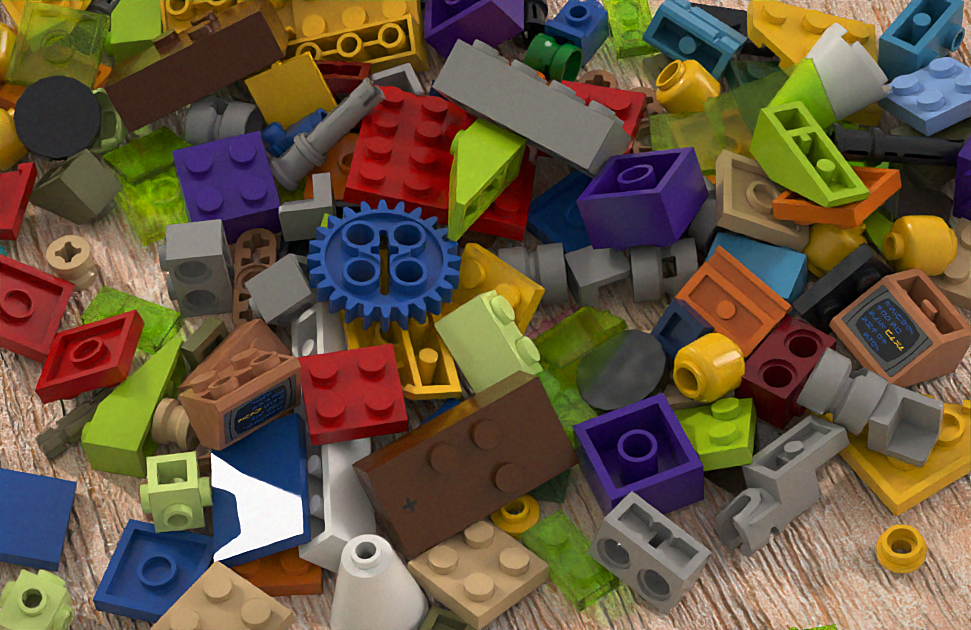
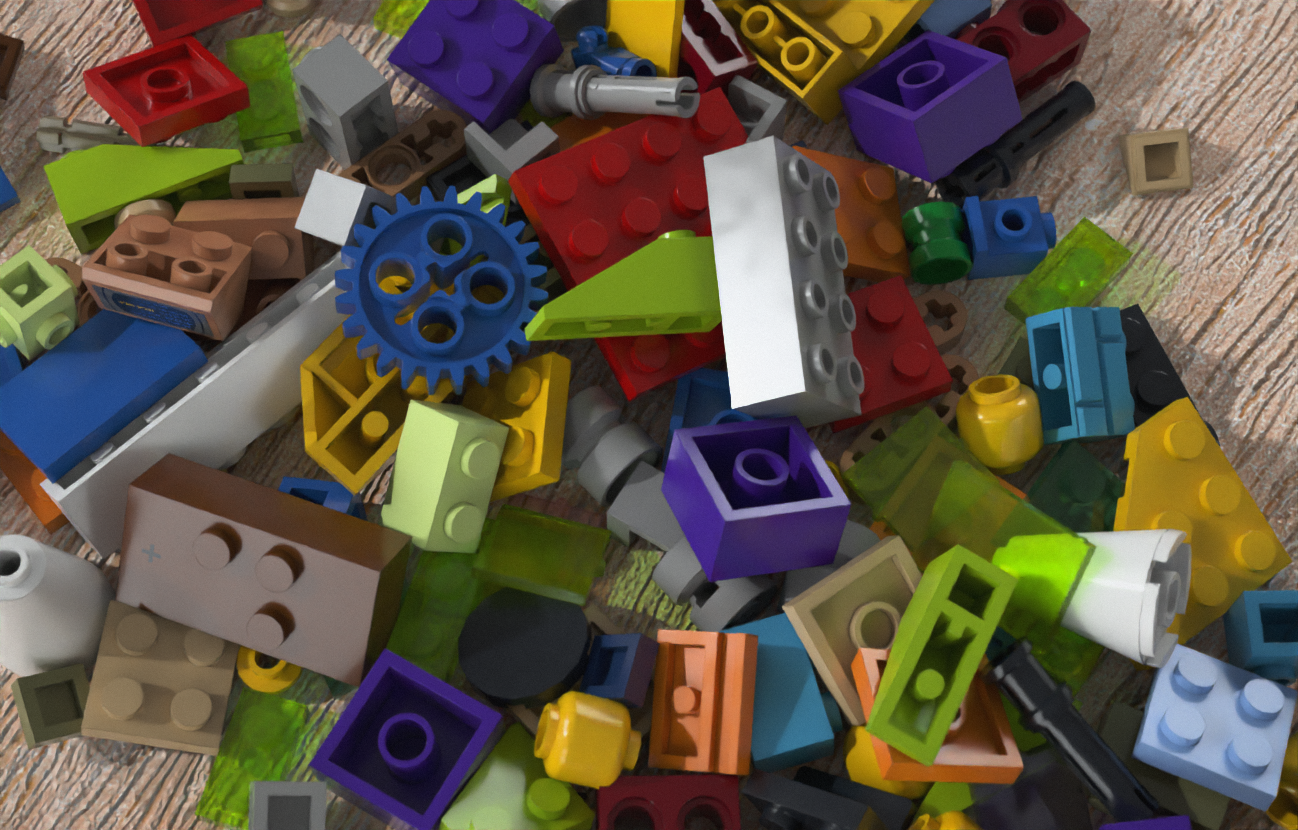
camera: 45 degrees right, 15 degrees up
(352, 394) = (252, 386): red plate -> none

